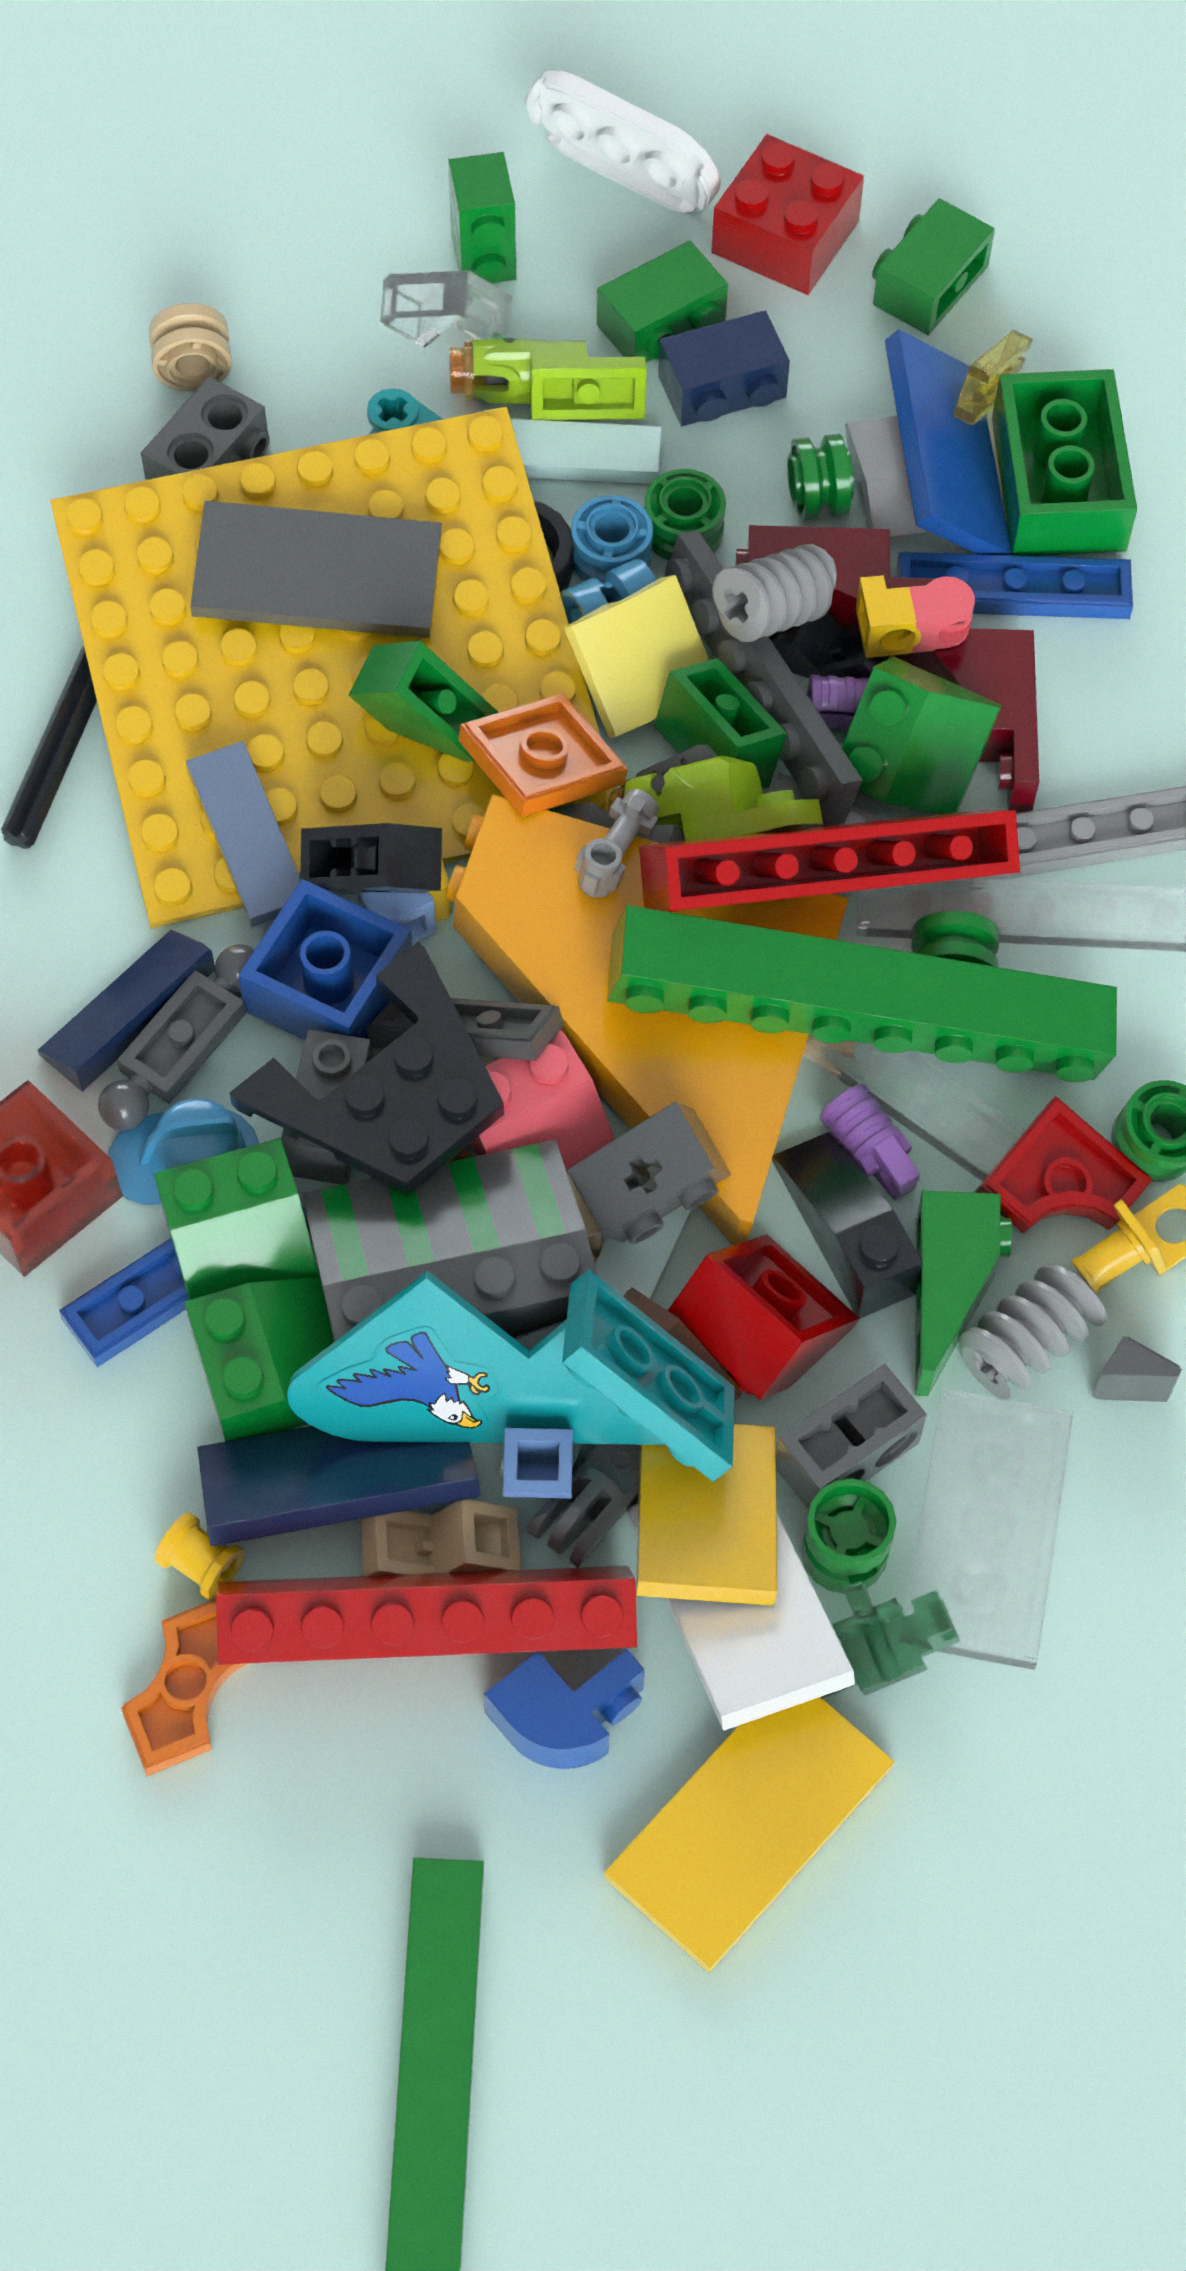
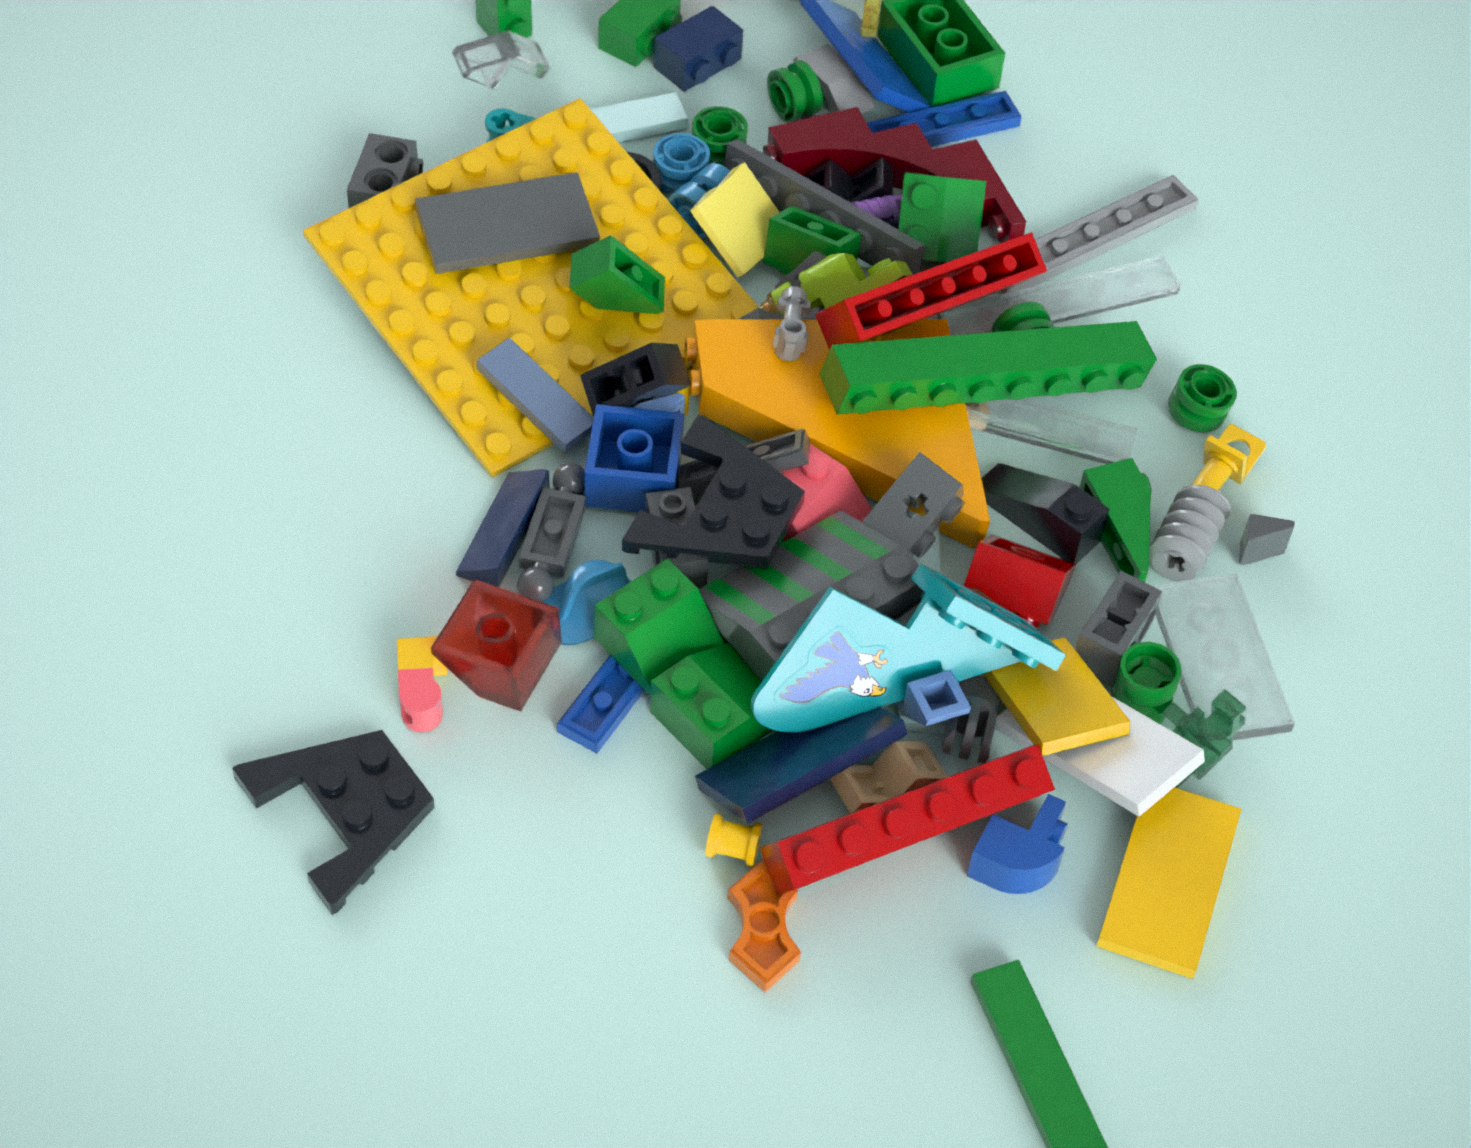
camera: 25 degrees left, 10 degrees down
(51, 757) = (372, 389): black axle -> none
(189, 346) = (343, 122): tan wheel -> none
(542, 754) = (712, 289): orange tile -> none
(550, 377) = (594, 79): lime plate -> none
(775, 592) = (814, 153): light grey piece -> none
(872, 1140) = (1027, 453): medium lavender hinge -> none
(913, 617) = (903, 147): leg -> none
(1063, 1169) = (1158, 437): red tile -> none

